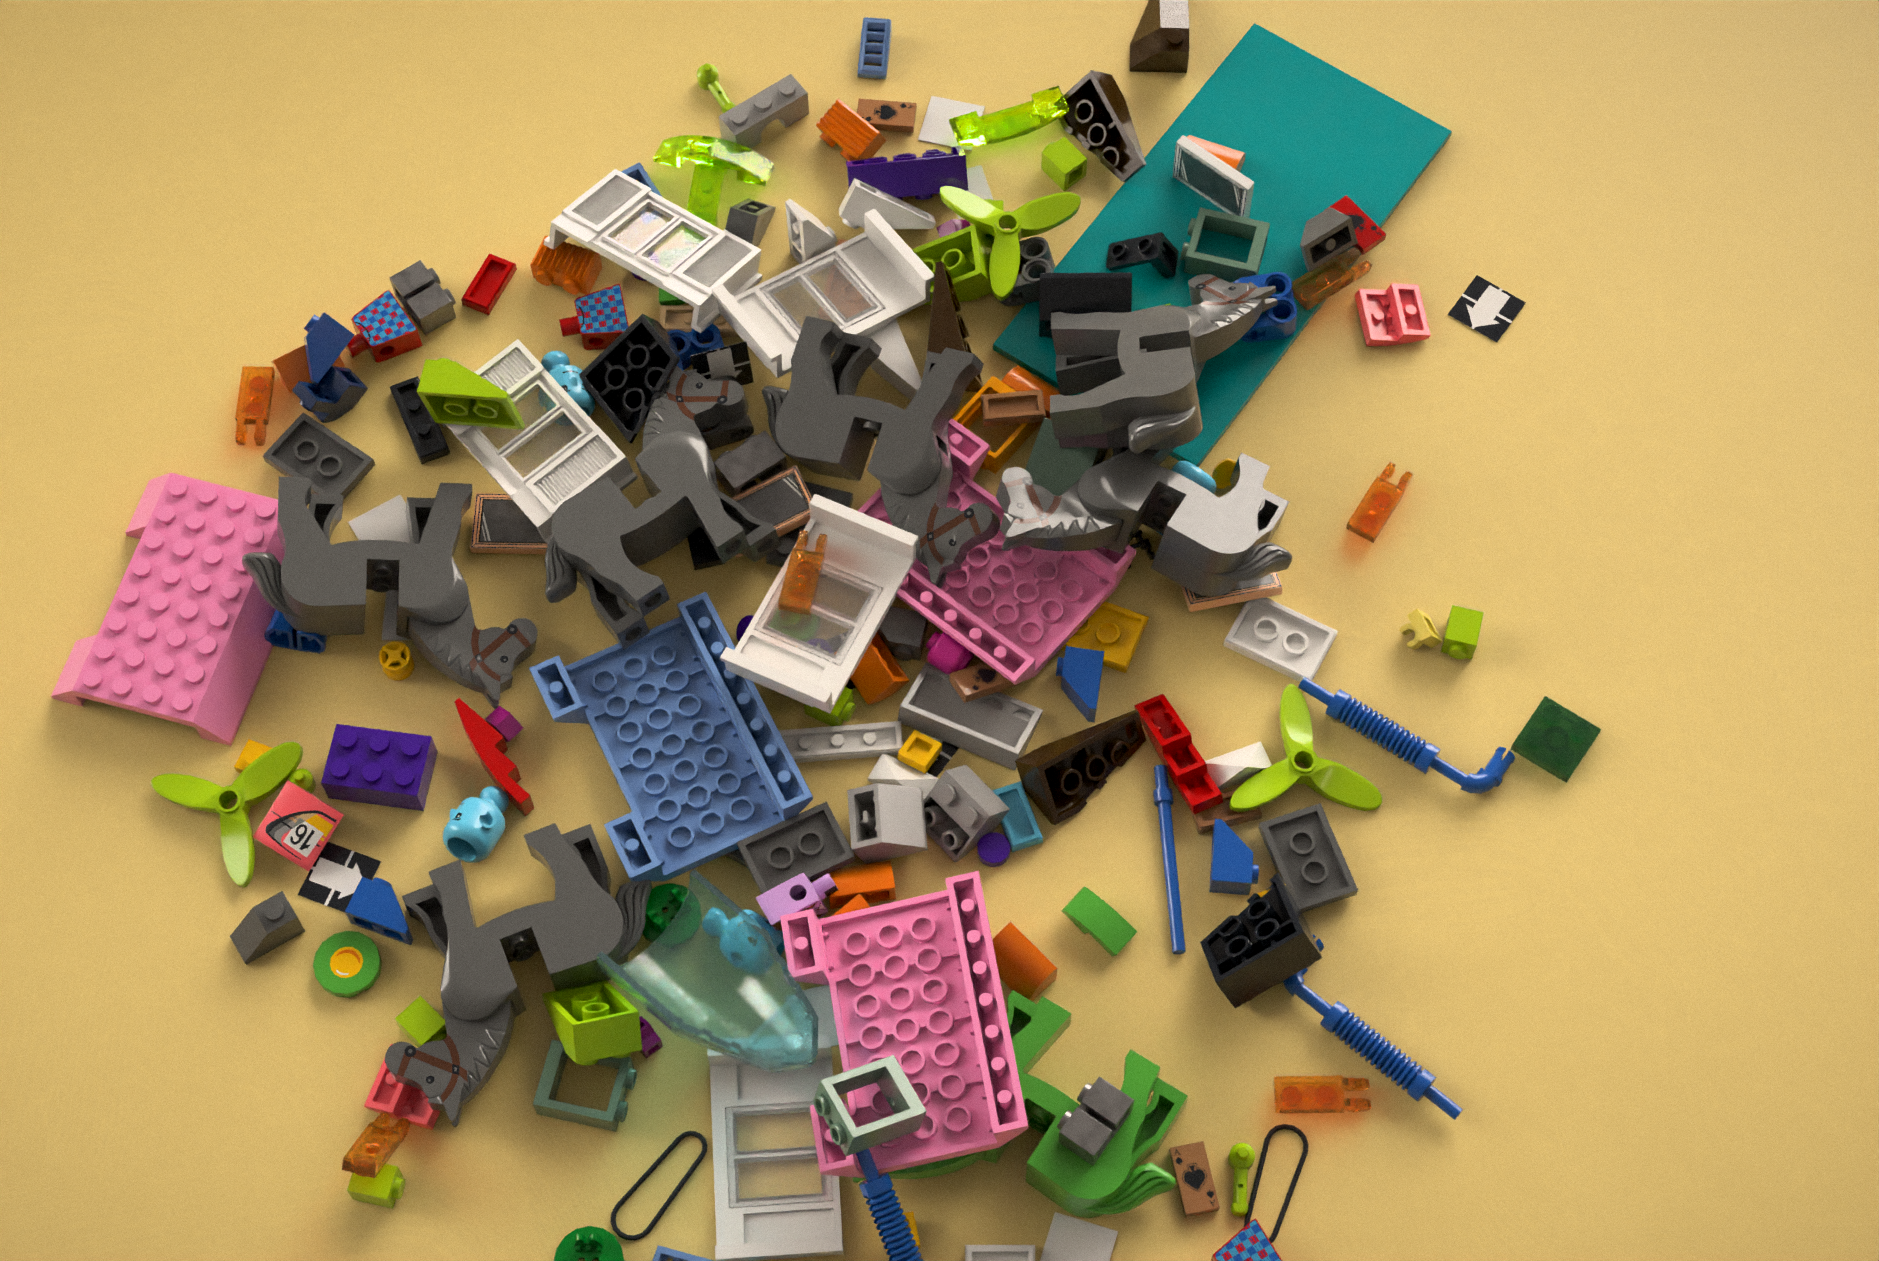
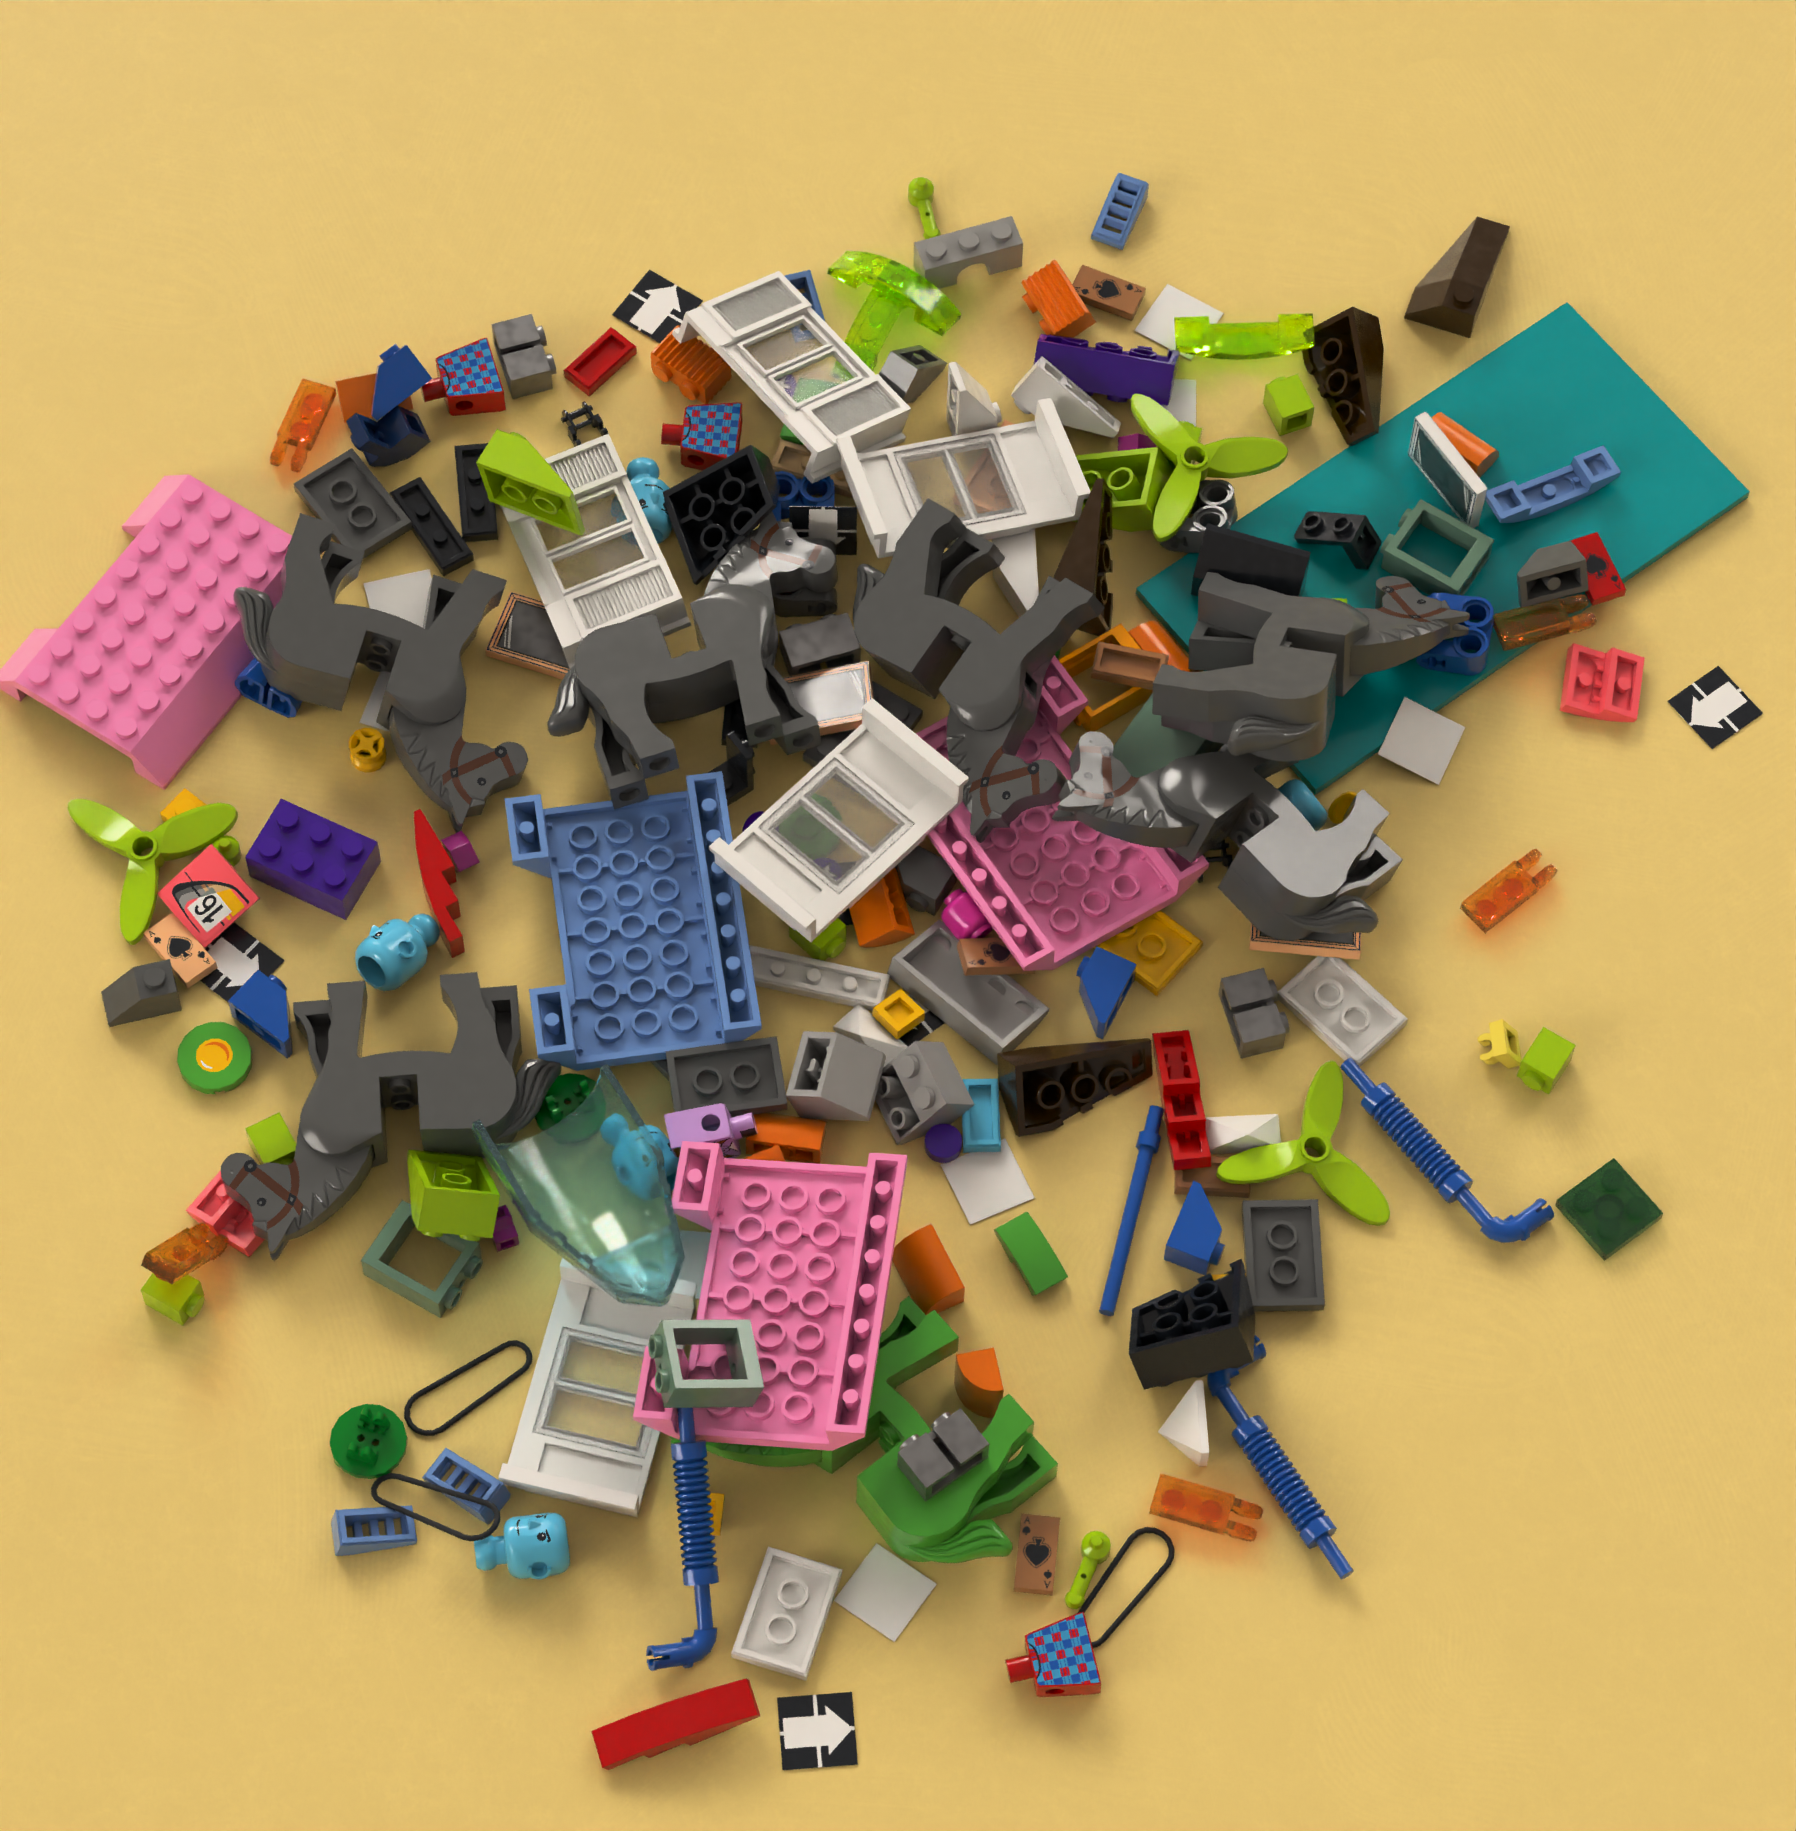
camera: 15 degrees right, 0 degrees up
(286, 876) = (187, 956): none -> light nougat tile
(392, 458) = (432, 527): none -> black tile
(501, 333) = (594, 420): none -> black piece
(521, 227) = (656, 306): none -> sticker
(716, 583) = (738, 768): none -> black bracket
(802, 575) = (830, 783): clear orange hinge -> none
(1041, 872) = (987, 1182): none -> white sticker
(1098, 1046) = (979, 1381): none -> orange brick
(1210, 663) = (1252, 1012): none -> flat silver piece
(1266, 401) = (1421, 740): none -> white sticker
(1283, 1028) = (1188, 1425): none -> white slope
(1300, 171) = (1553, 490): none -> medium blue slope

